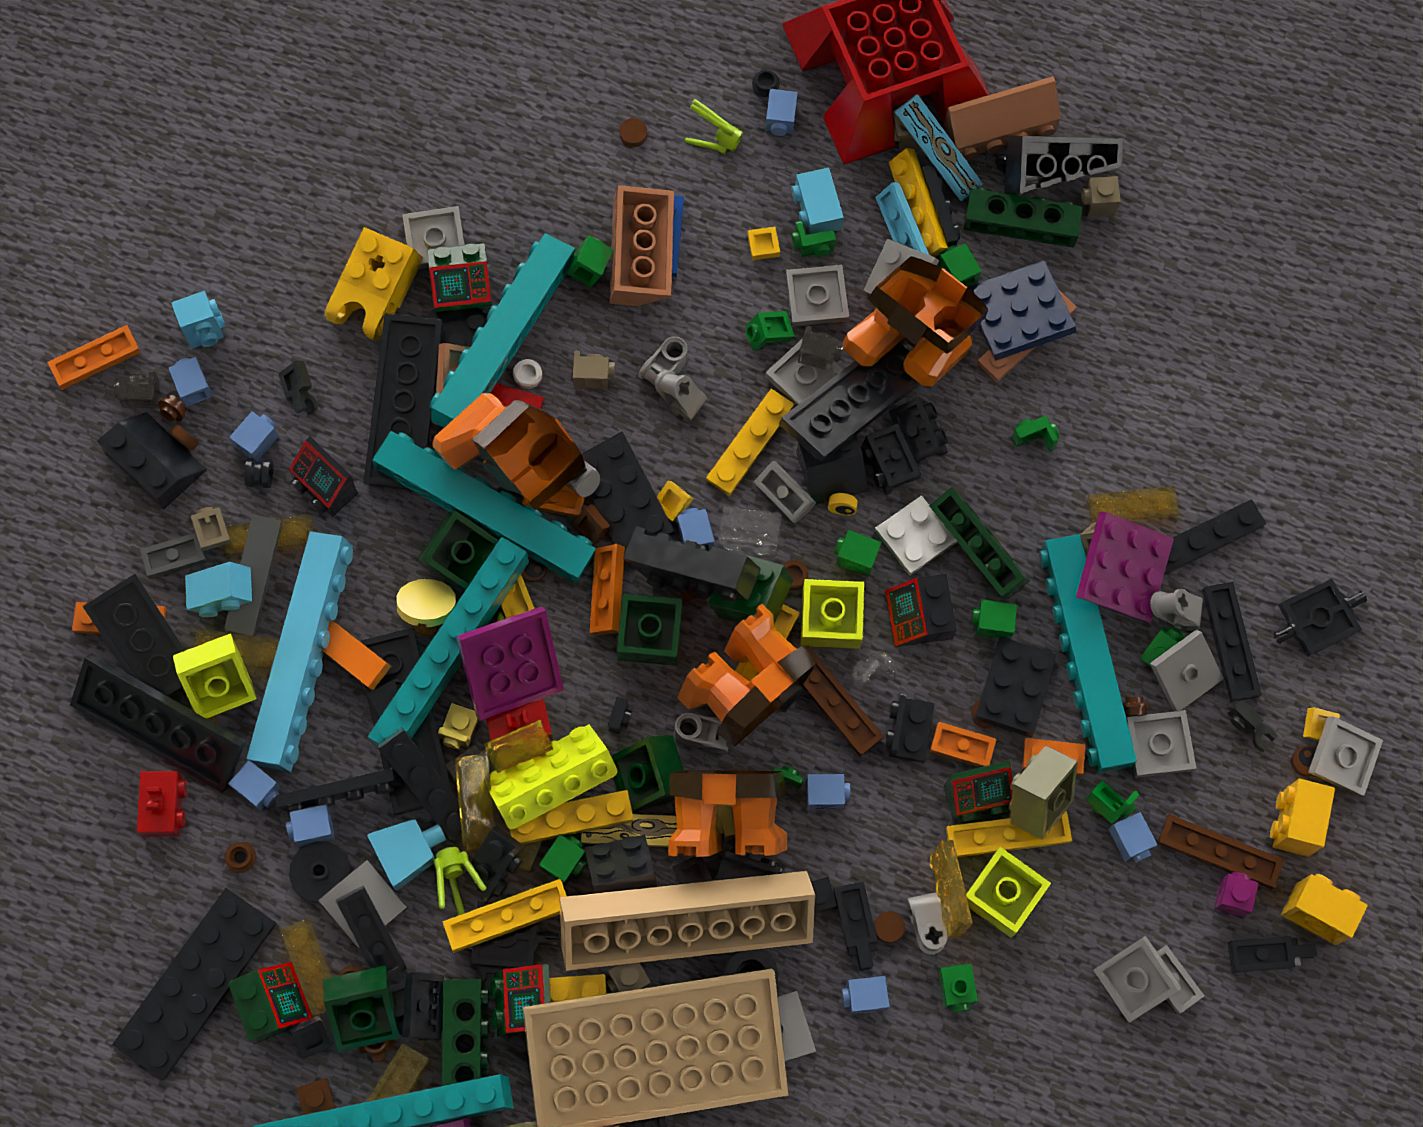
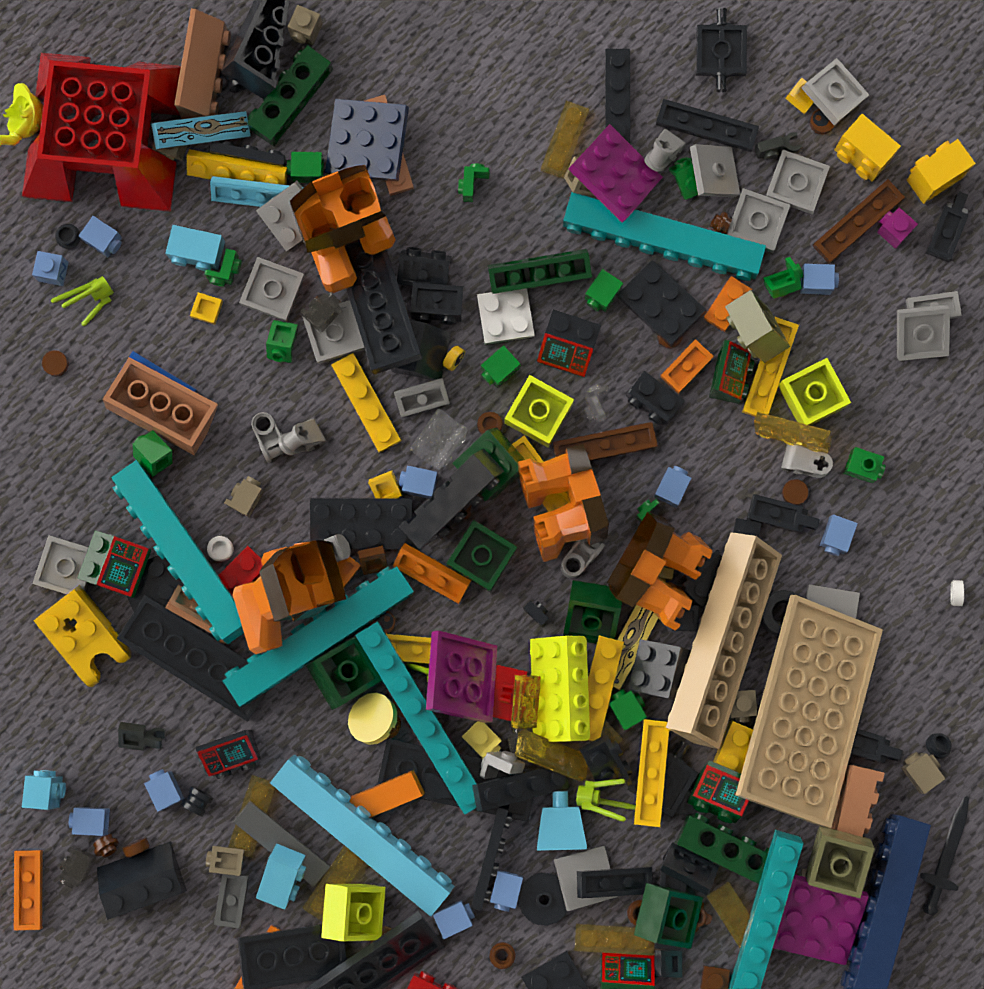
camera: 55 degrees left, 10 degrees up
(439, 746) = (502, 761): none -> light grey bracket
(724, 81) = (50, 268): none -> medium blue brick
(1226, 765) = (798, 181): none -> light grey plate

